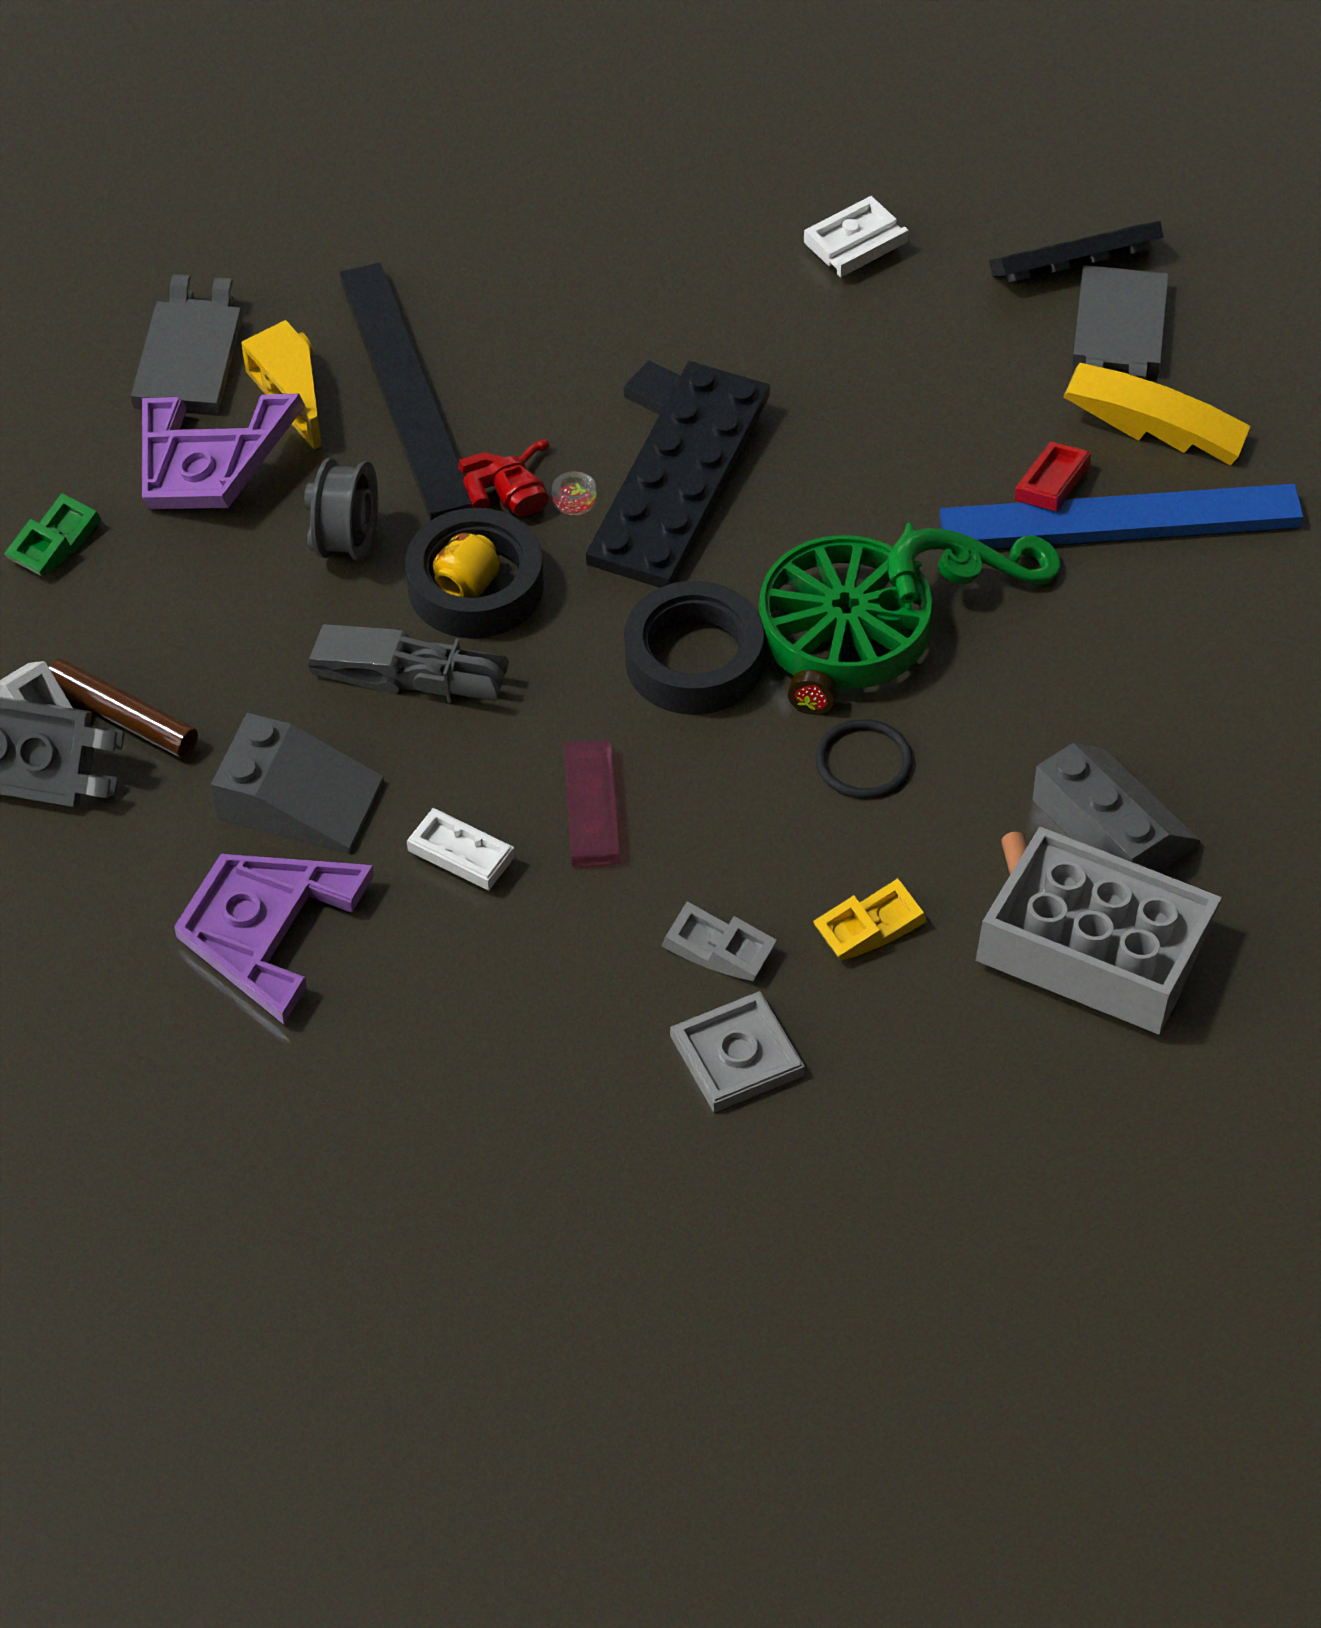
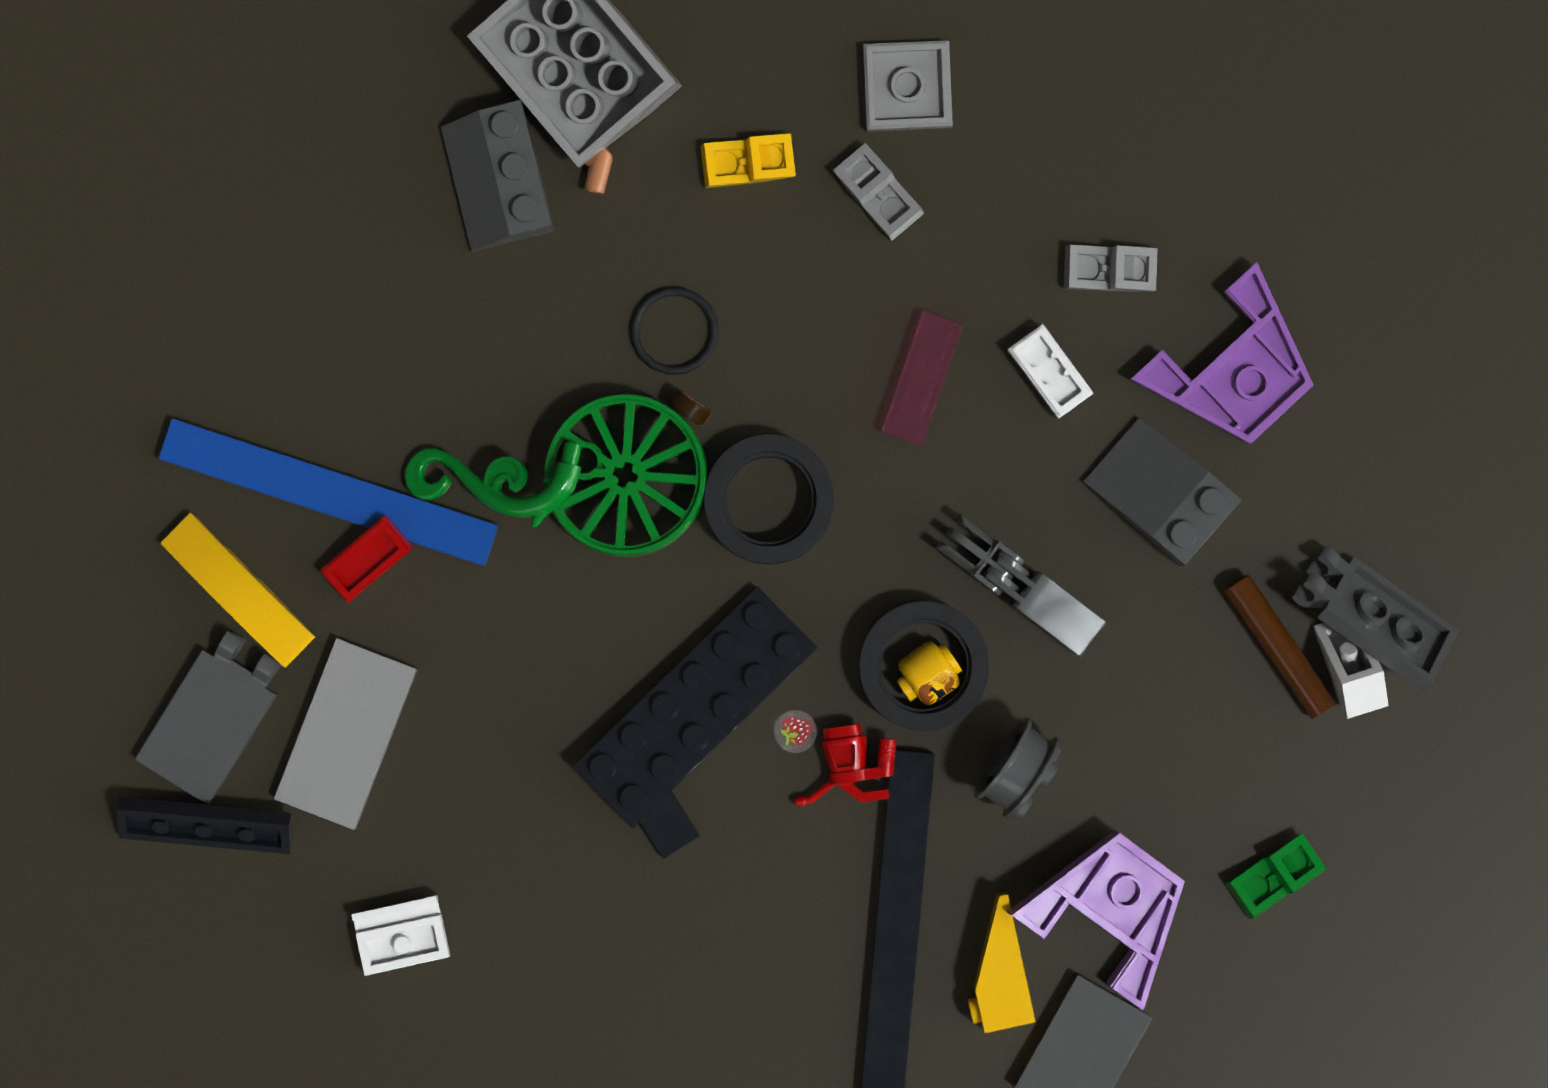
camera: 155 degrees left, 35 degrees up
(431, 968) = (1110, 268): none -> light grey slope
(992, 356) = (345, 734): none -> light grey tile

